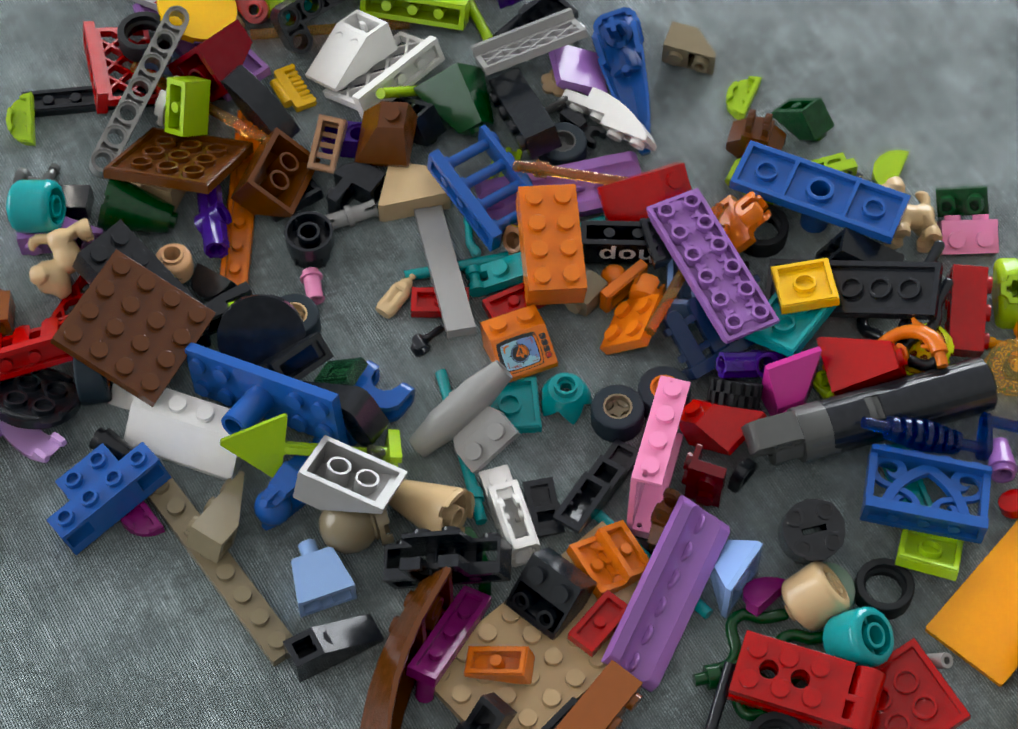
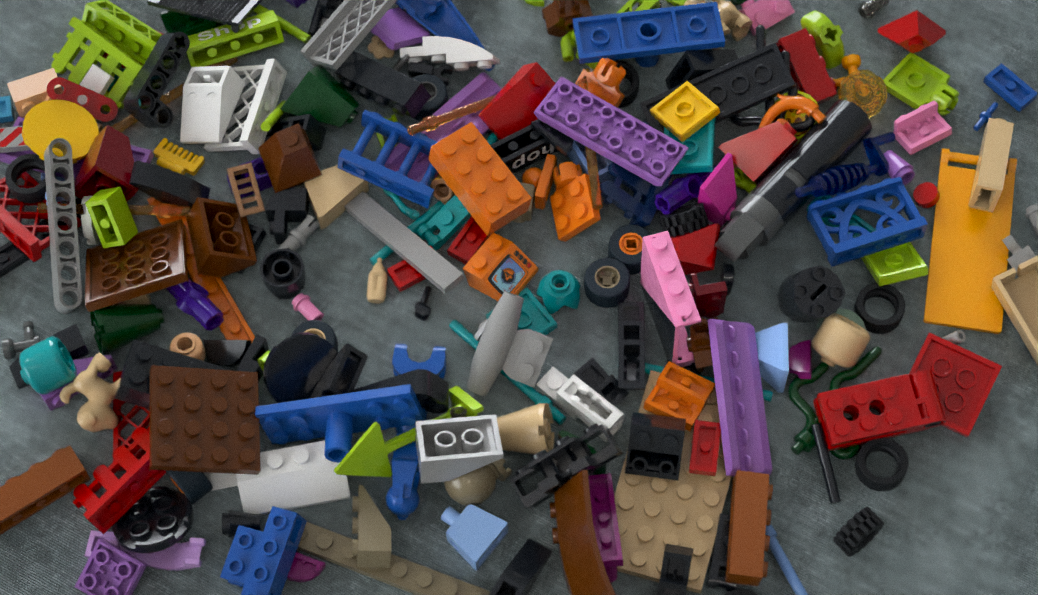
camera: 30 degrees left, 5 degrees up
(342, 371) = (382, 365): clear green tile -> none
(500, 663) = (652, 520): orange slope -> none
(859, 637) = (892, 353): teal head -> none

